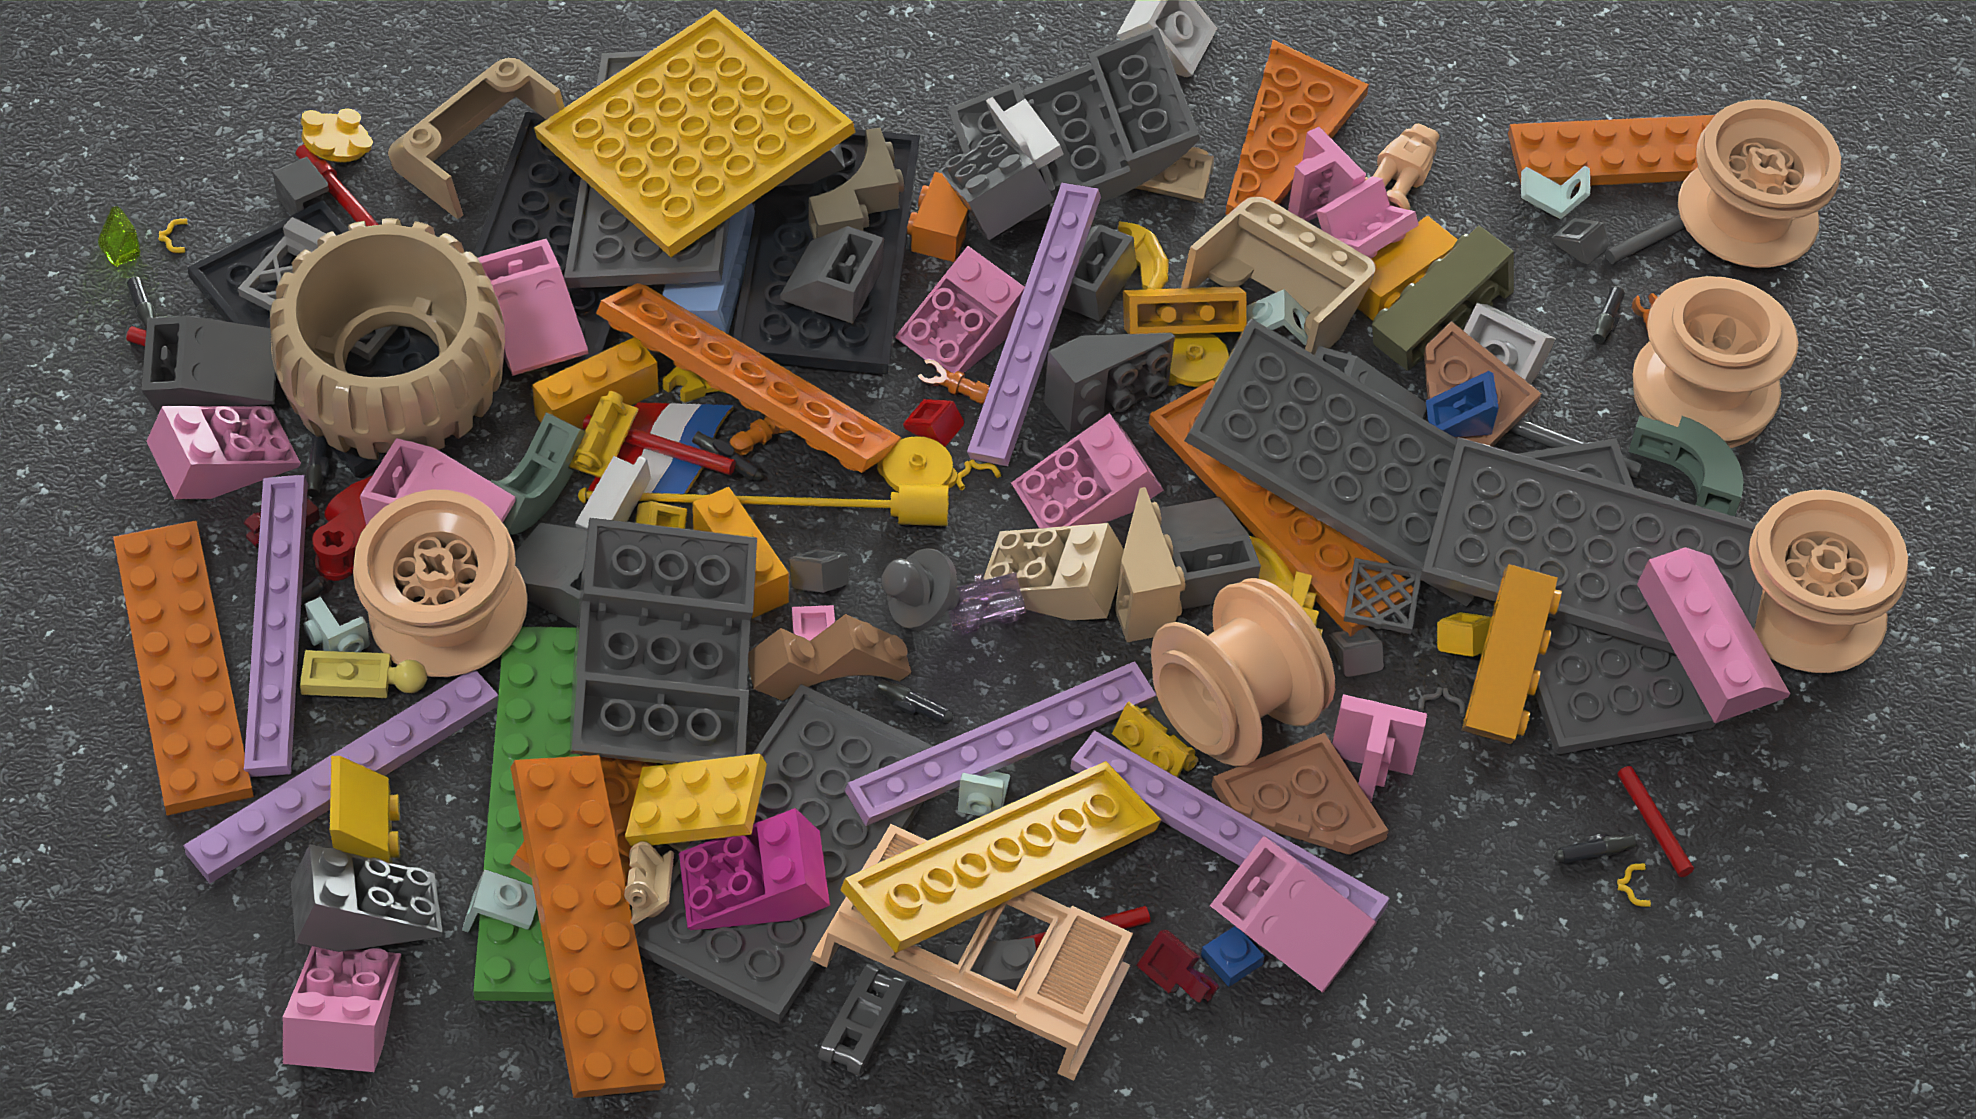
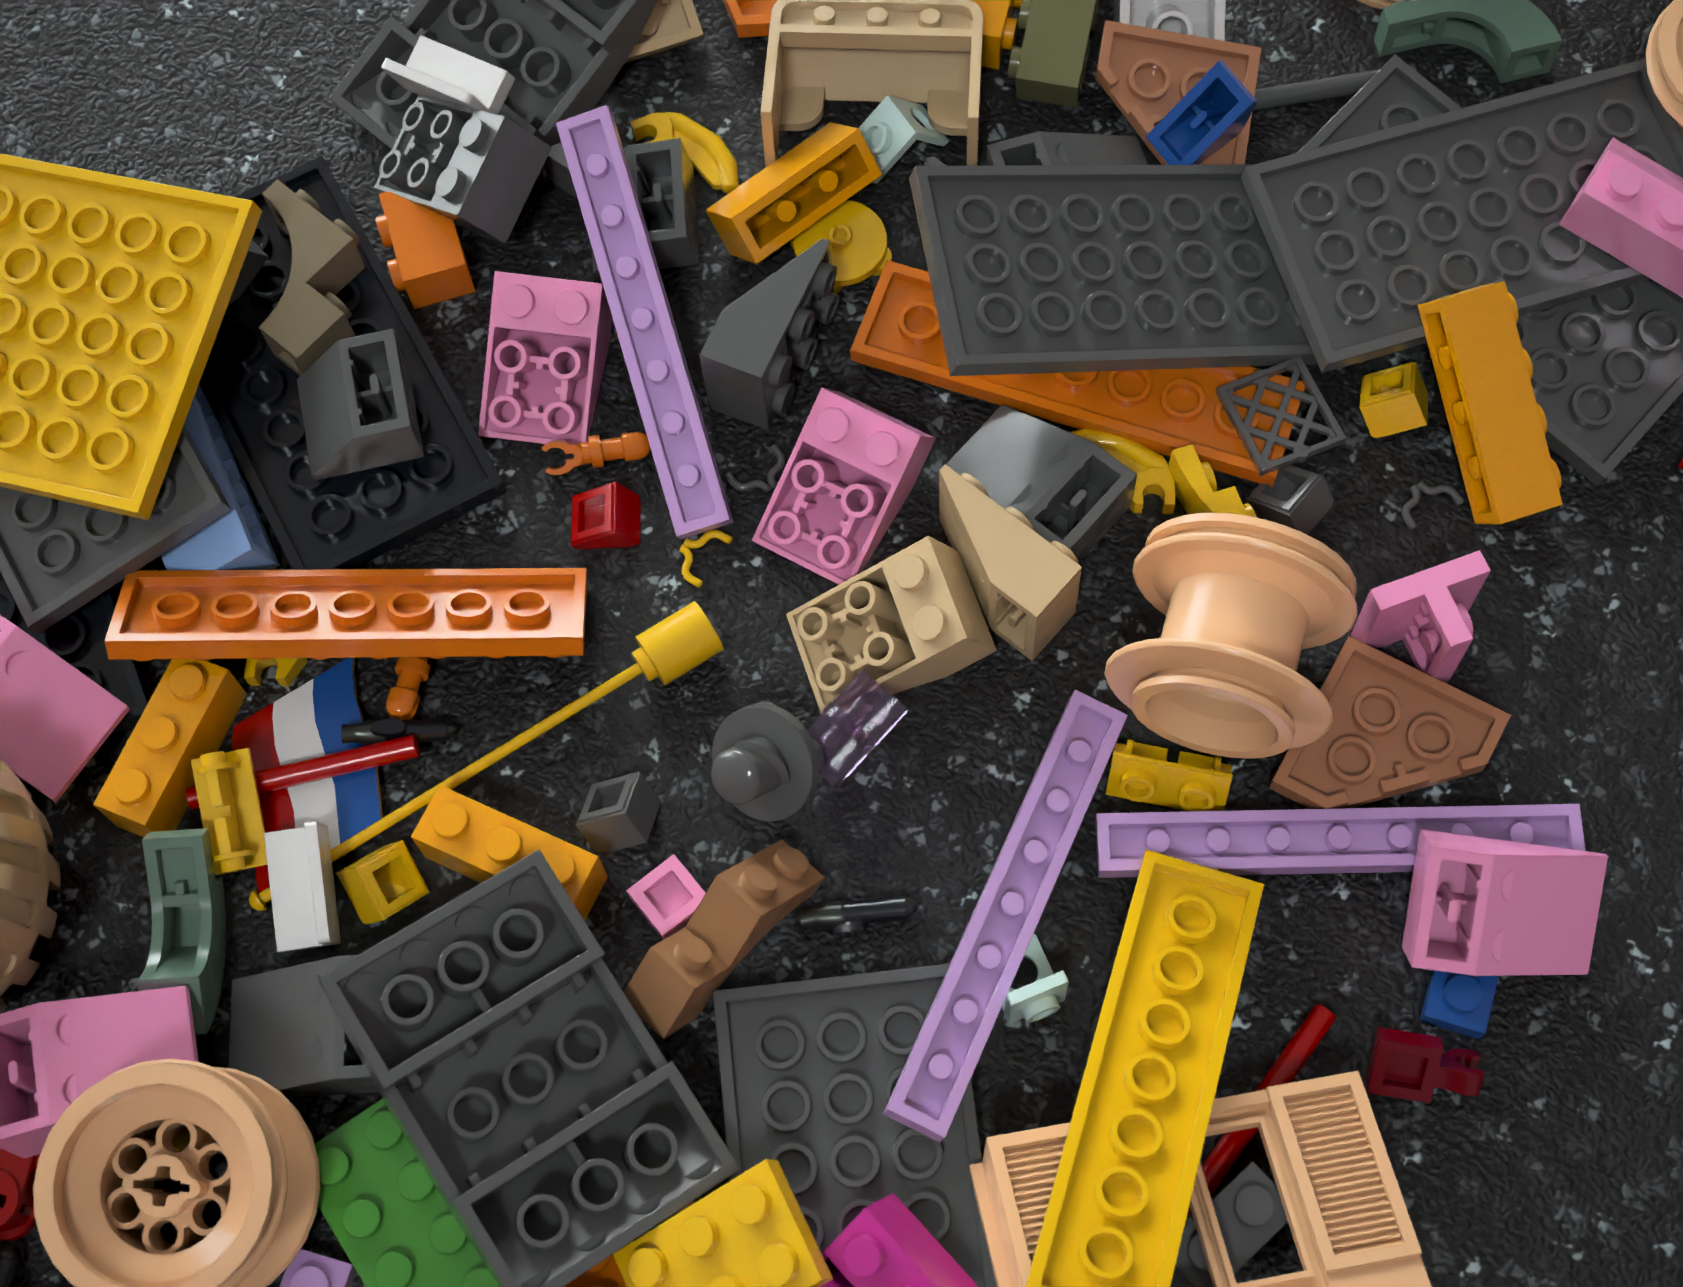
camera: 25 degrees left, 15 degrees up
(918, 463) = (631, 591): yellow piece -> none

